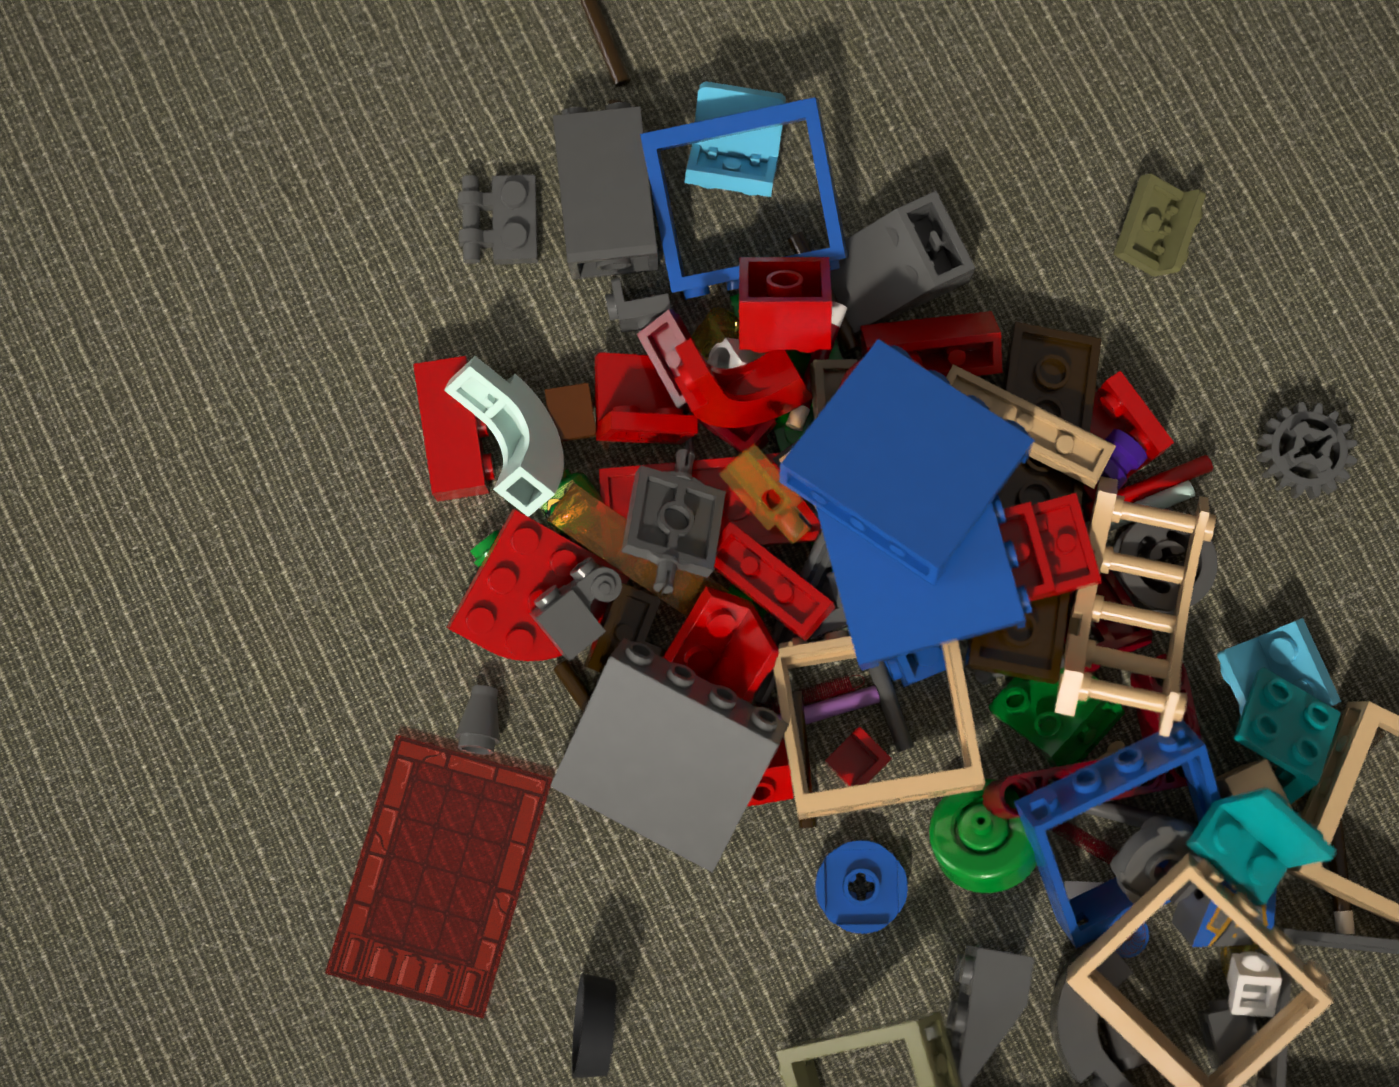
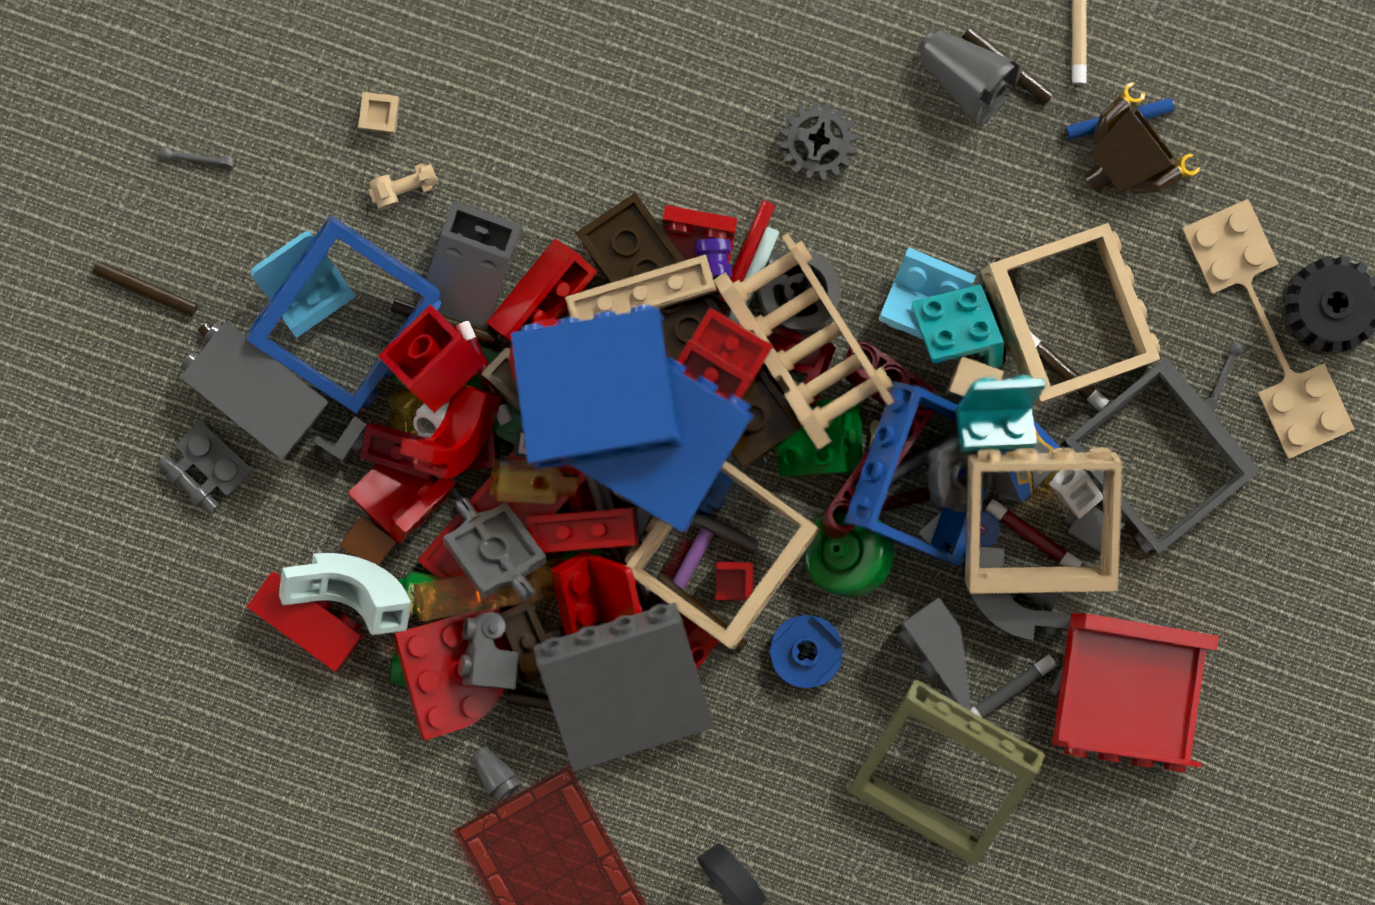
camera: 45 degrees left, 5 degrees up
(793, 554) = (582, 501): none -> red plate
(882, 136) = (385, 192): none -> tan bar
(942, 66) = (379, 113): none -> tan plate
(1159, 226) = (603, 87): olive bracket -> none
(1167, 984) = (1032, 535): none -> dark red bar

